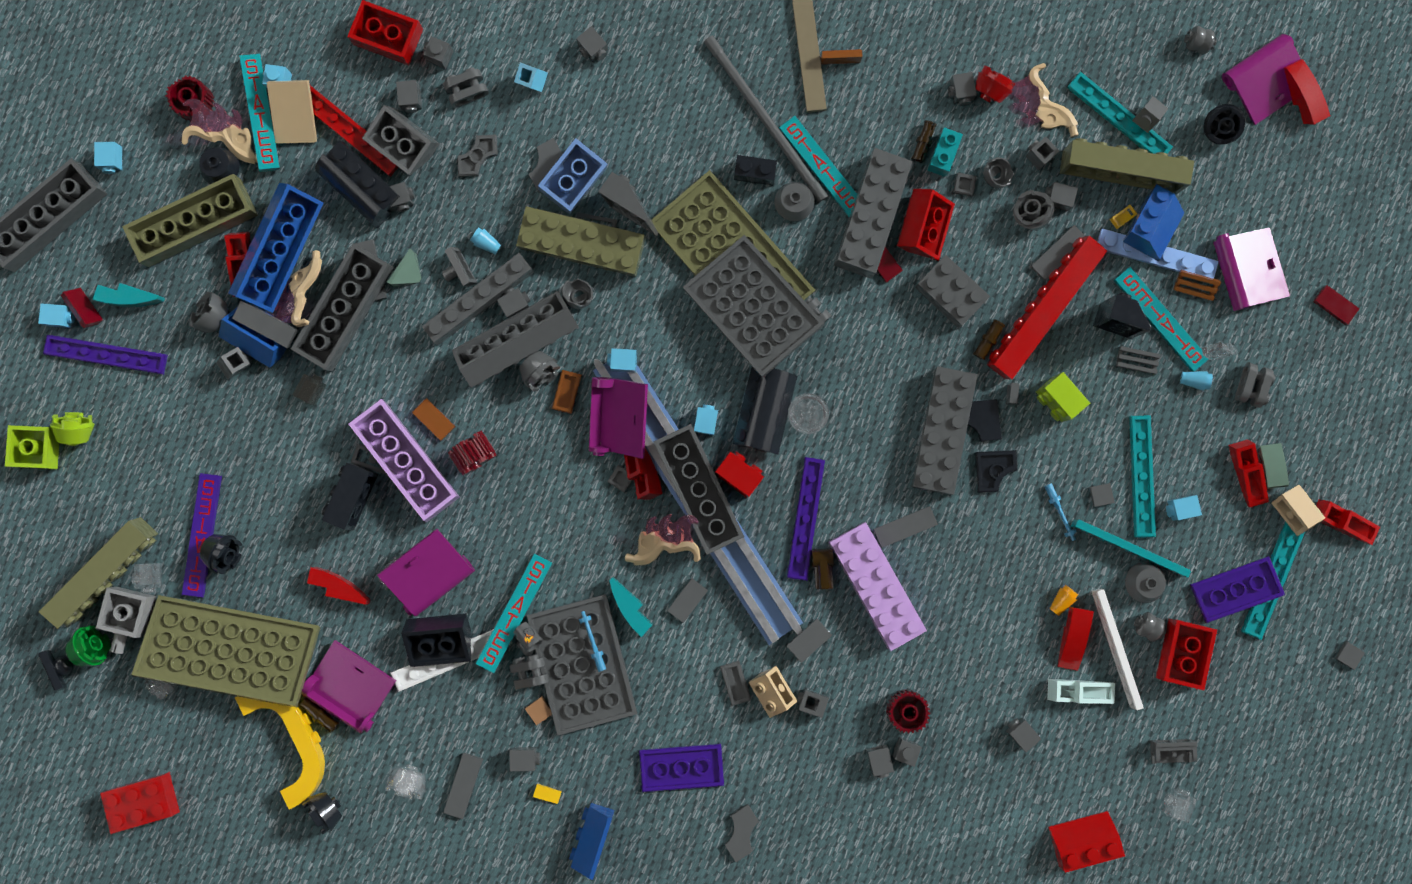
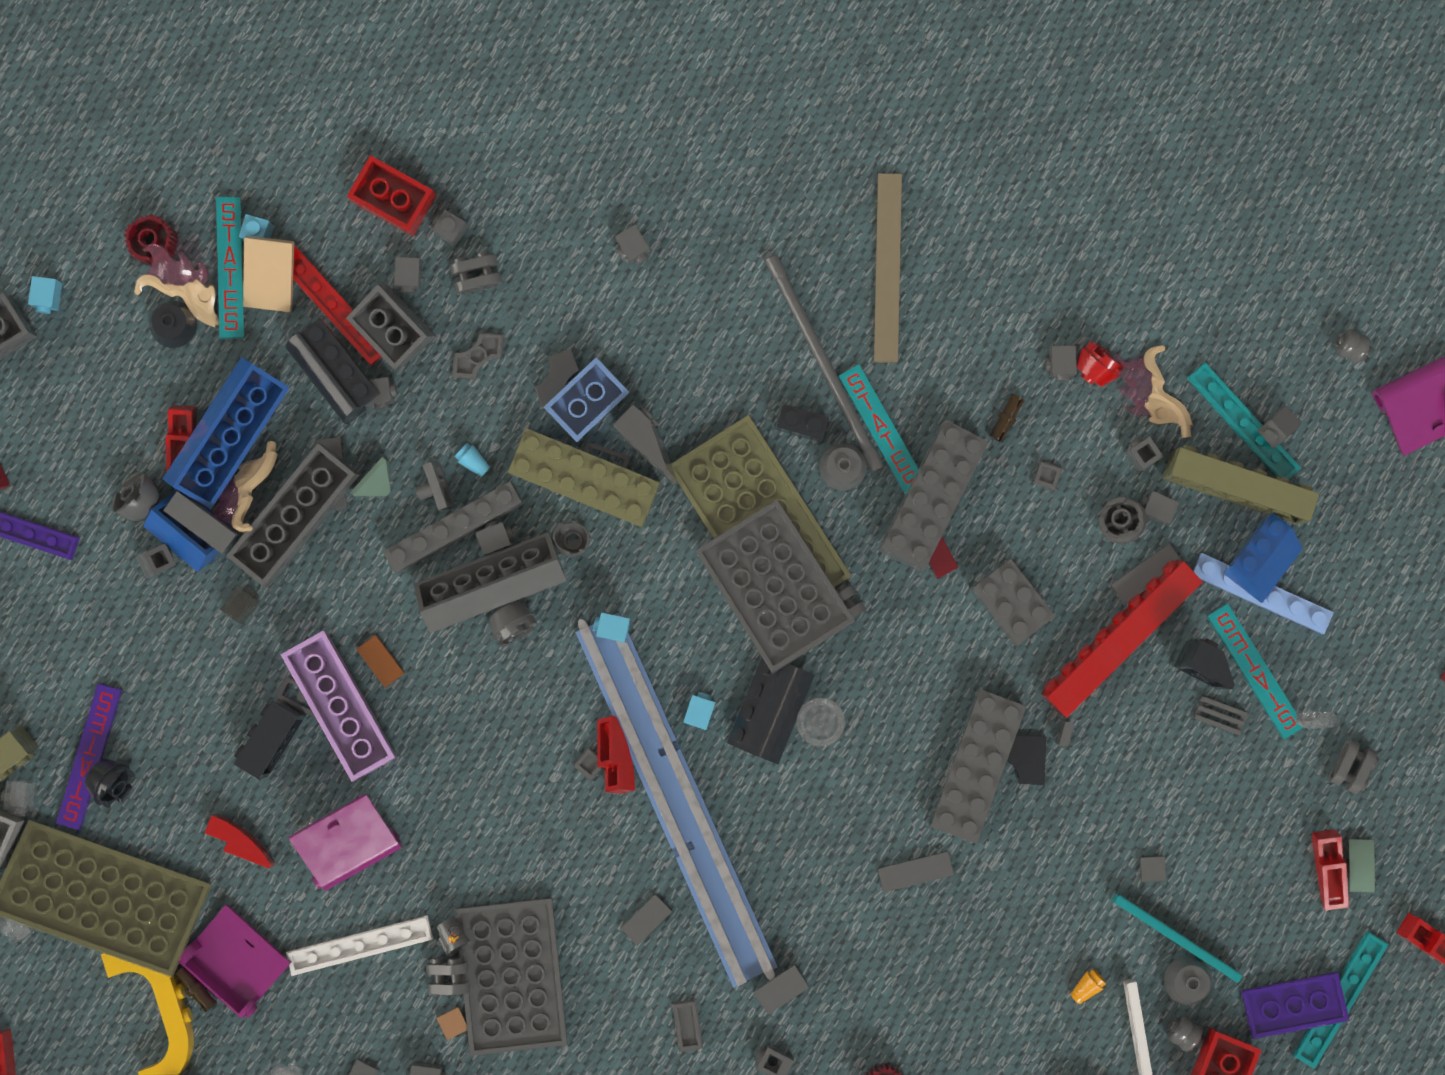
camera: 10 degrees right, 0 degrees up
(126, 296) = (42, 462): teal slope -> none
(190, 220) = (130, 385): olive brick -> none
(437, 640) = (347, 922): black slope -> none
(471, 453) = (419, 709): dark red brick -> none
(514, 613) = (440, 904): teal tile -> none
(531, 77) = (554, 274): medium azure brick -> none
(566, 391) = (541, 651): dark orange tile -> none
(597, 655) = (531, 968): dark azure piece -> none
(617, 417) = (596, 693): magenta door -> none
(629, 607) = (576, 917): teal slope -> none
(665, 536) = (630, 842): piece -> none
(698, 489) = (678, 794): dark grey brick -> none
(739, 474) = (728, 783): red brick -> none
(773, 691) = (729, 1043): tan brick -> none
(805, 518) = (799, 844): dark purple tile -> none
(822, 567) = (810, 903): dark brown piece -> none
(841, 56) = (924, 303): dark orange tile -> none
(877, 586) = (871, 937): lavender brick -> none
(926, 223) = (994, 516): red slope -> none
(945, 152) = (1029, 435): teal brick -> none
(989, 339) = (1047, 665): dark brown pin -> none
(992, 467) = (1029, 817): black tile -> none
(995, 166) = (1083, 462): dark grey hair -> none
(1054, 498) = (1097, 867): dark azure piece -> none
(1062, 397) = (1122, 748): lime brick -> none
(1075, 638) = (1094, 1033): red slope -> none
(1123, 217) = (1229, 542): yellow piece -> none
(1142, 476) = (1204, 854): teal tile -> none
(1183, 508) = (1246, 899): medium azure brick -> none
(1199, 380) = (1286, 749): medium azure cone -> none
(1210, 296) = (1326, 638): dark orange tile -> none
(1224, 124) = (1364, 452): black cone -> none
(1251, 268) = (1371, 627): door -> none
(1298, 509) = (1380, 923): tan brick -> none

